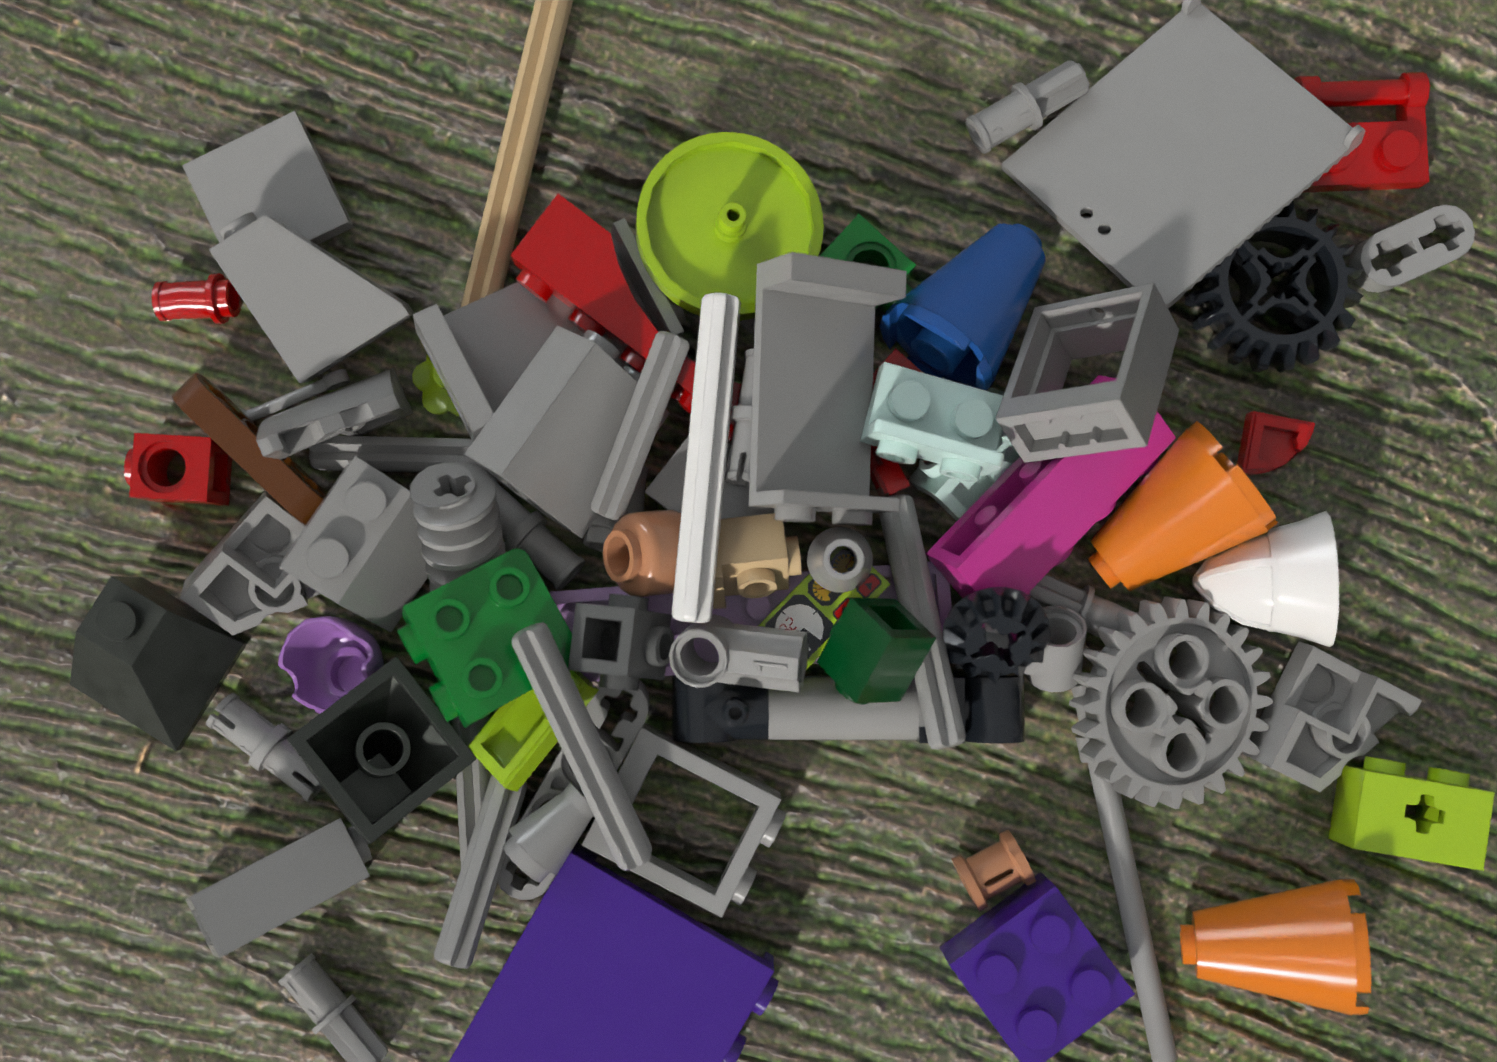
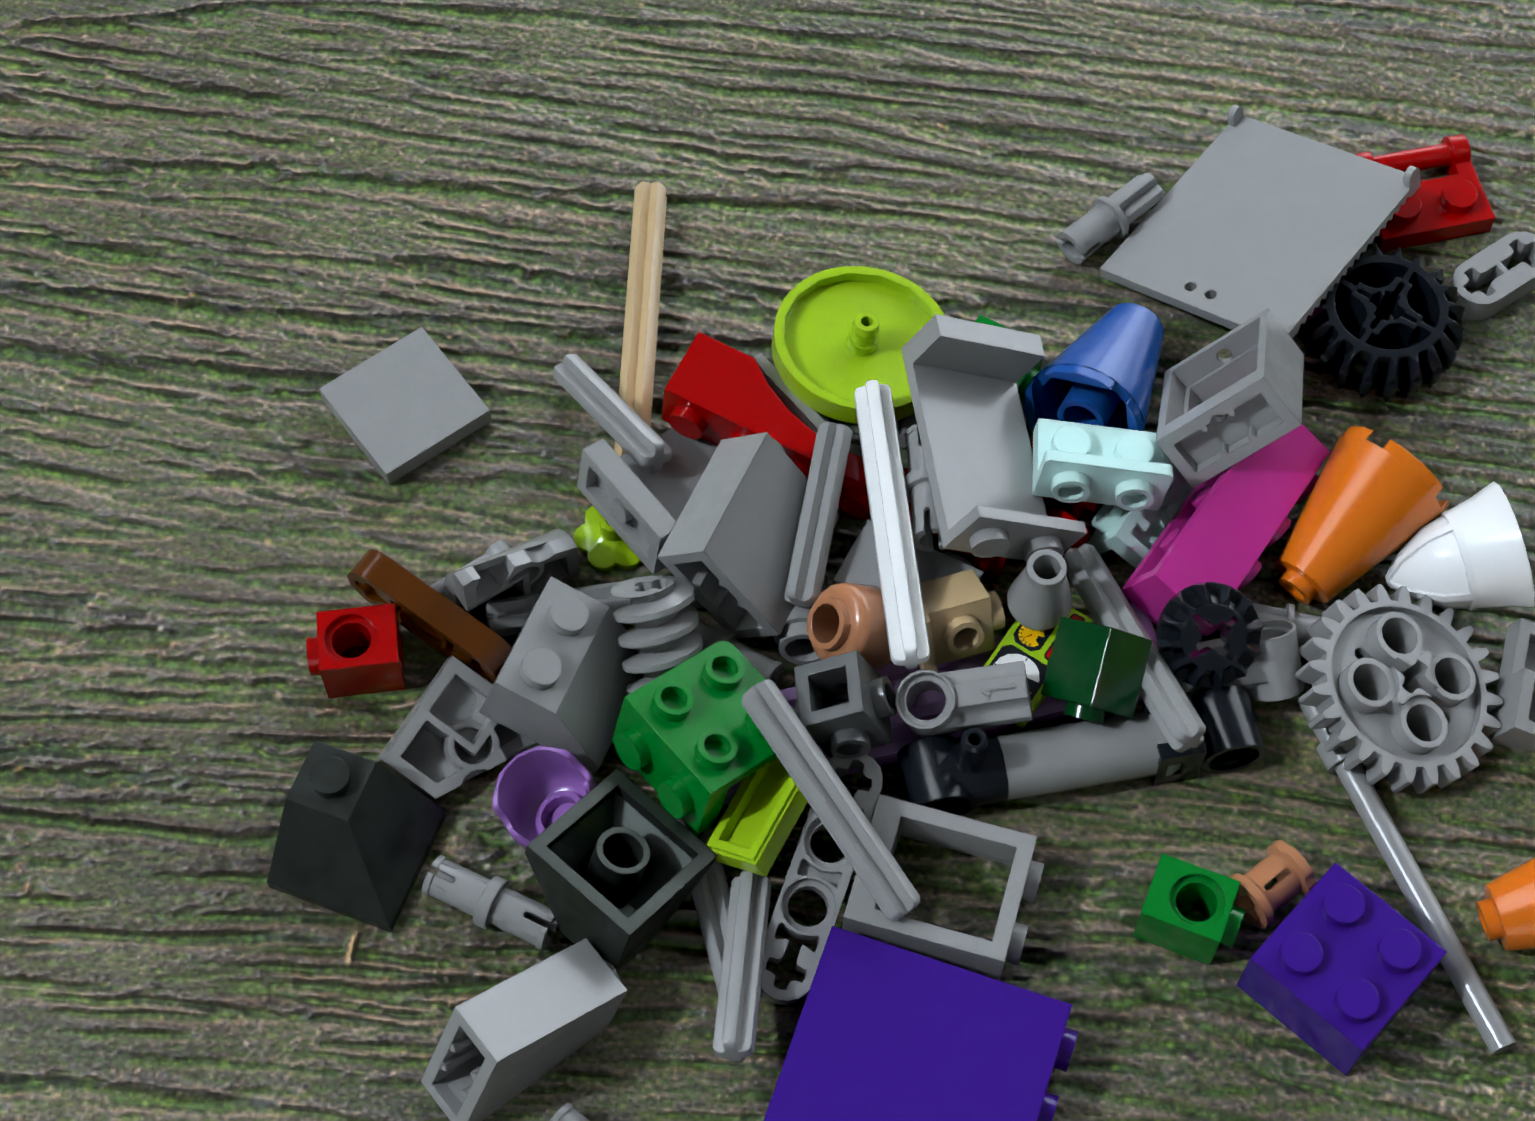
camera: 15 degrees left, 25 degrees down
(196, 299) = (351, 501): red pin -> none
(304, 295) = (466, 471): light grey slope -> none
(464, 255) = (612, 413): none -> light grey axle
(549, 834) = (808, 908): light grey cone -> none
(889, 863) = (1166, 927): none -> green brick
(1271, 441) = (1431, 447): red tile -> none

